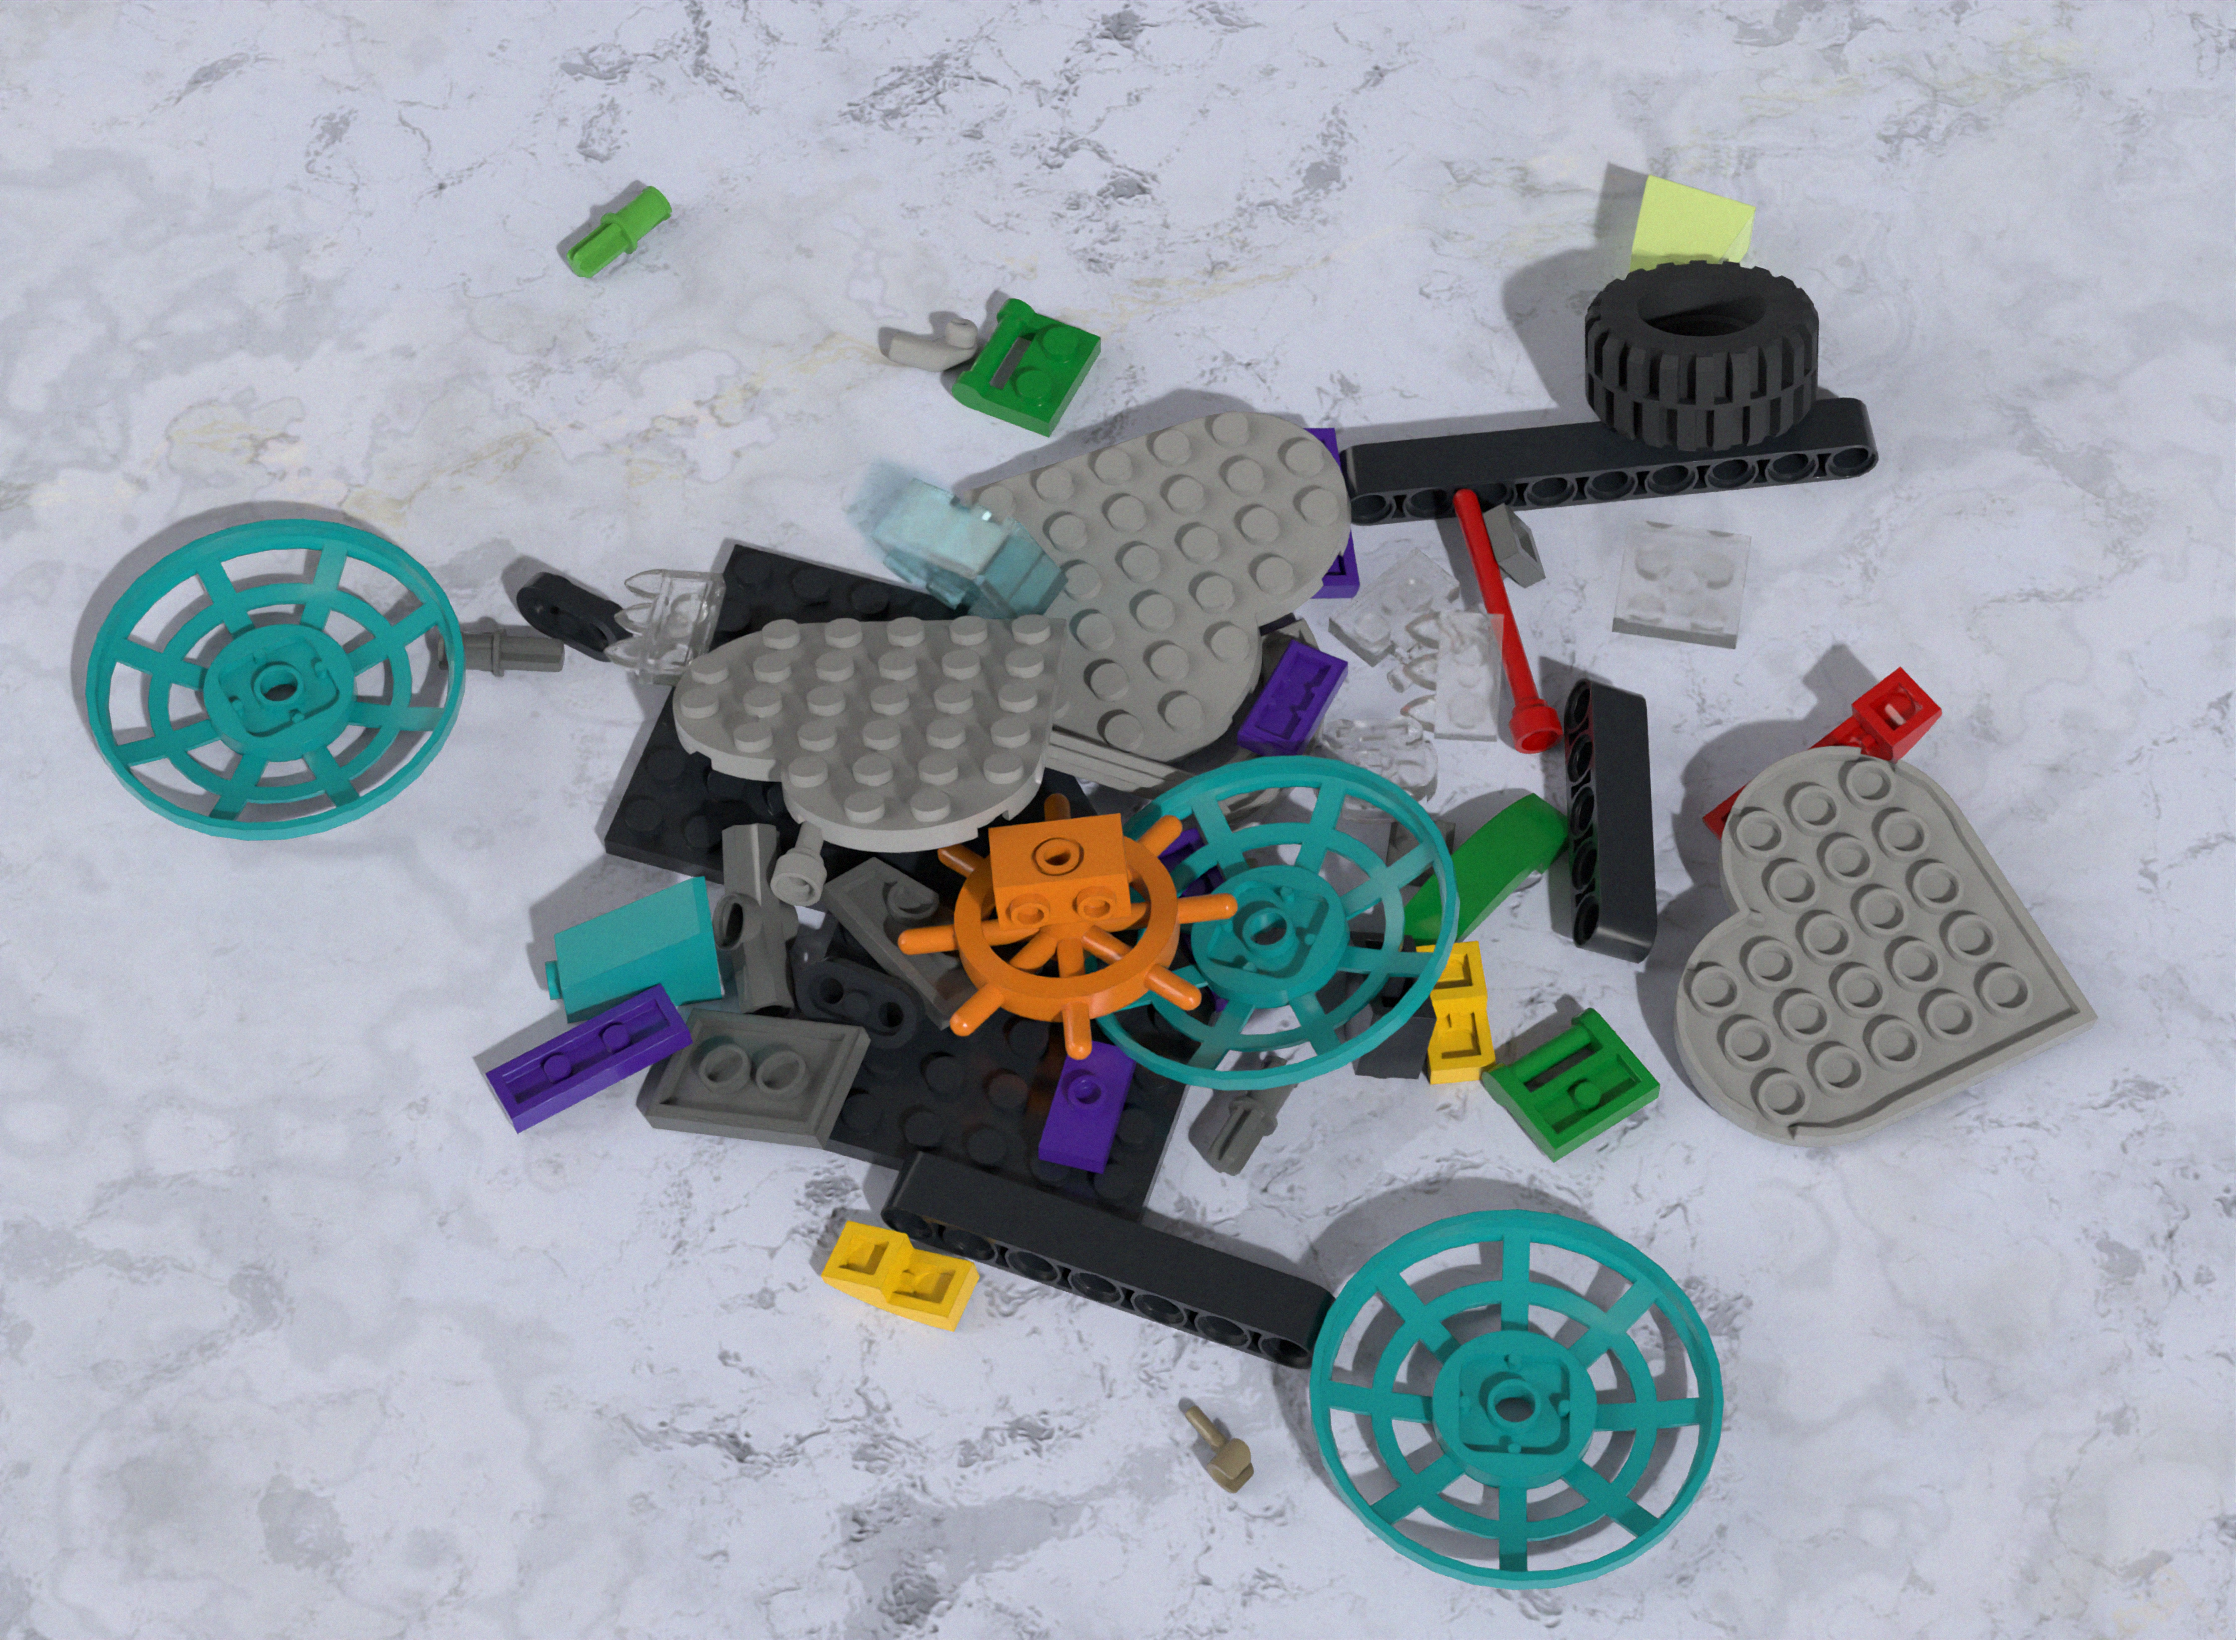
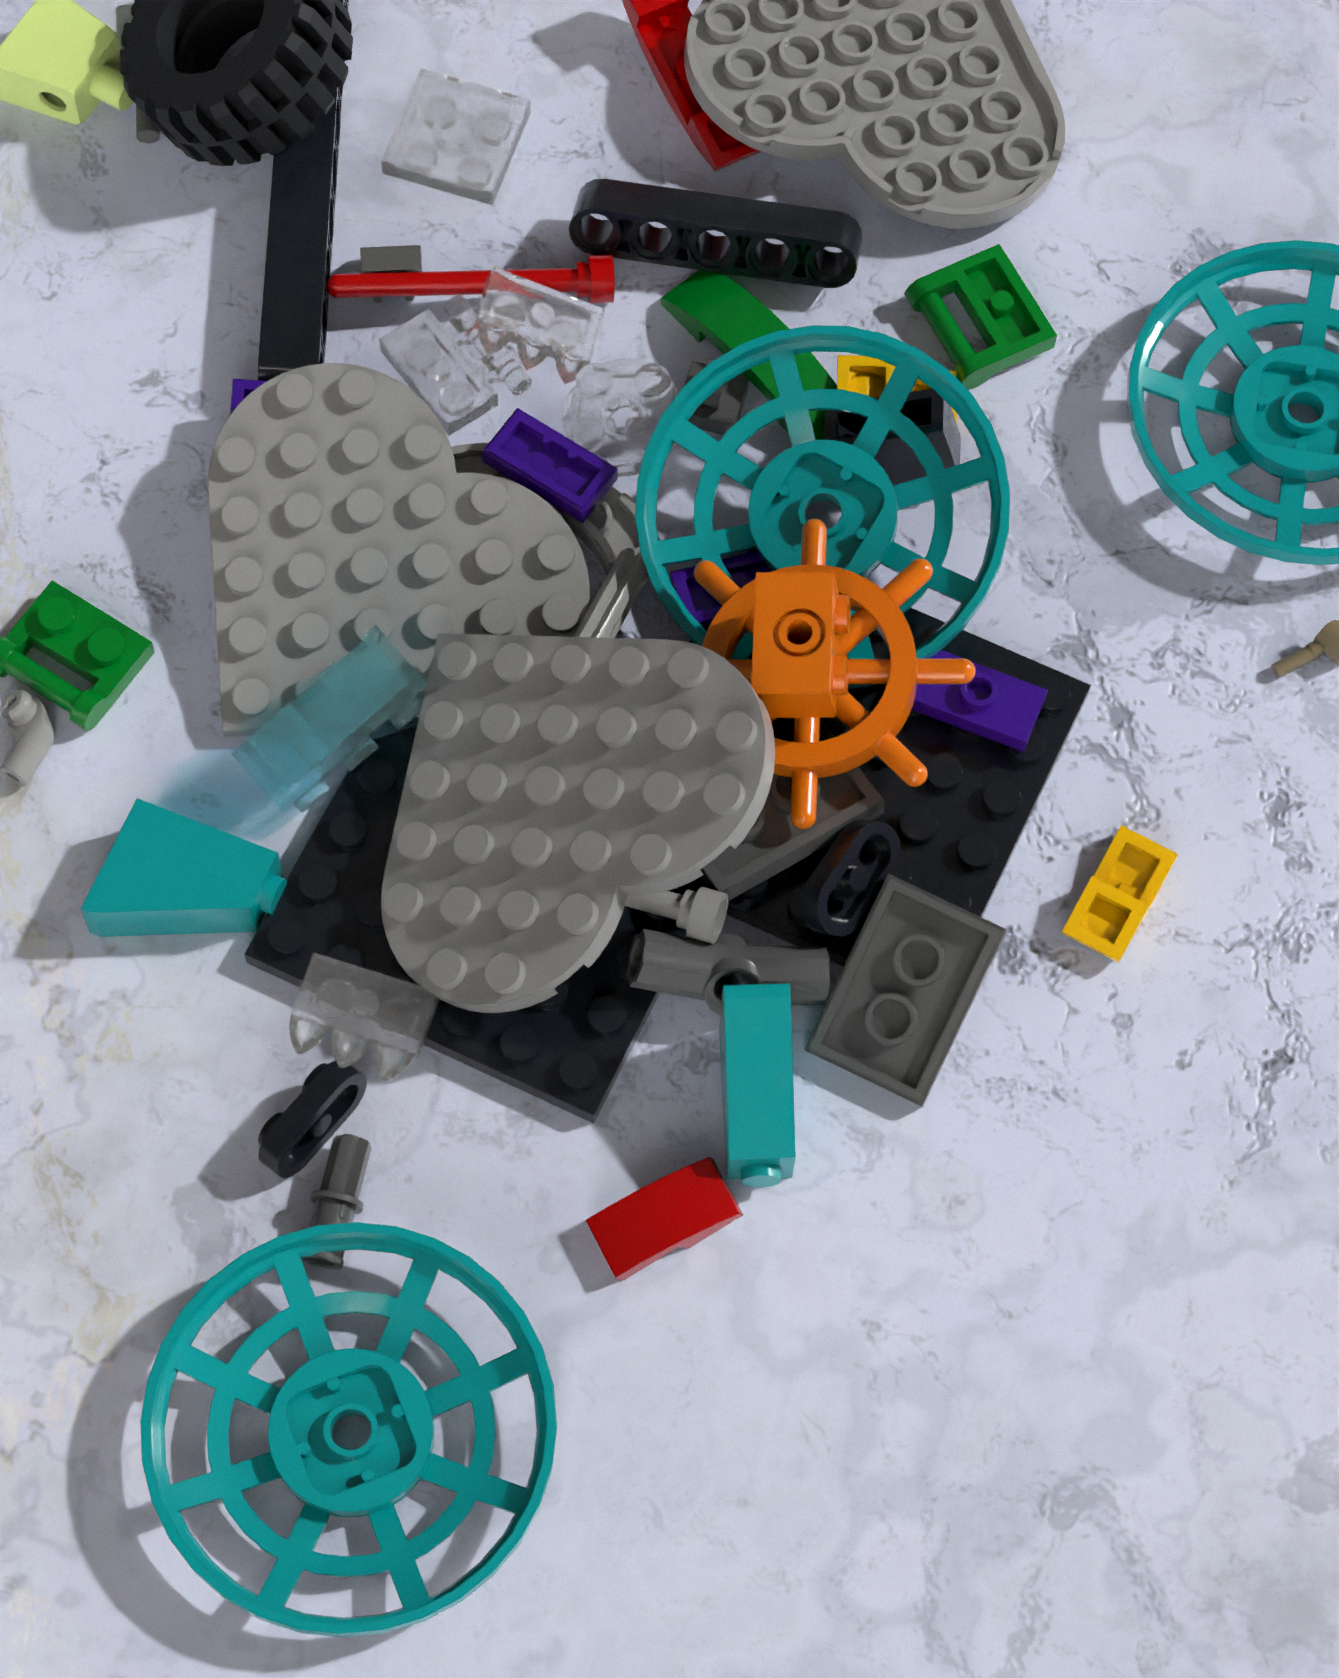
camera: 85 degrees left, 10 degrees up
(506, 908) = (663, 1216): none -> red slope
(589, 1058) = (858, 1149): dark purple plate -> none
(805, 477) = (181, 879): none -> teal slope
(1108, 1259) = (1125, 716): black beam -> none
(1248, 1122) = (1008, 587): dark grey axle -> none

